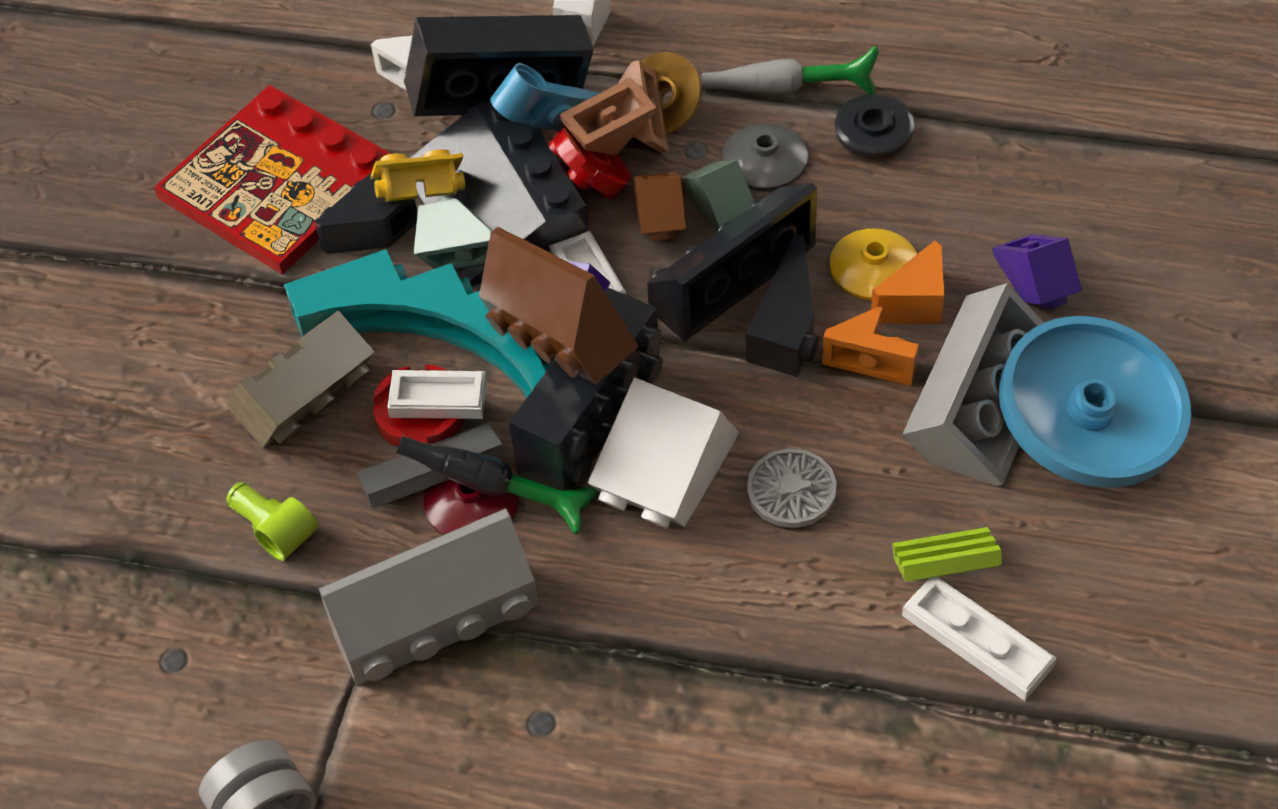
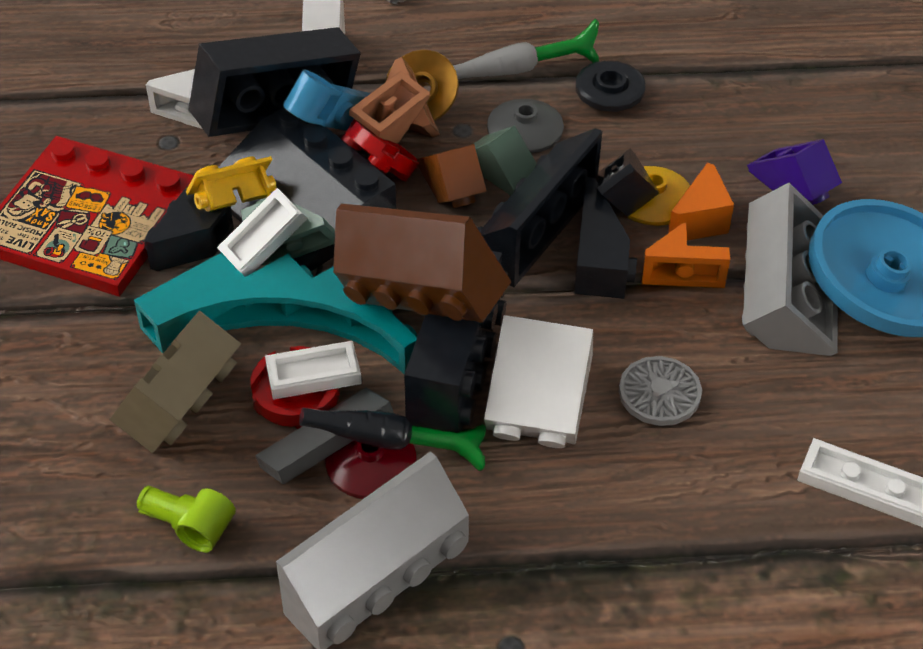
camera: 20 degrees left, 5 degrees down
(430, 236) = (262, 233): none -> white tile
(838, 248) = (626, 183): none -> black slope
(946, 554) = (818, 418): lime tile -> none

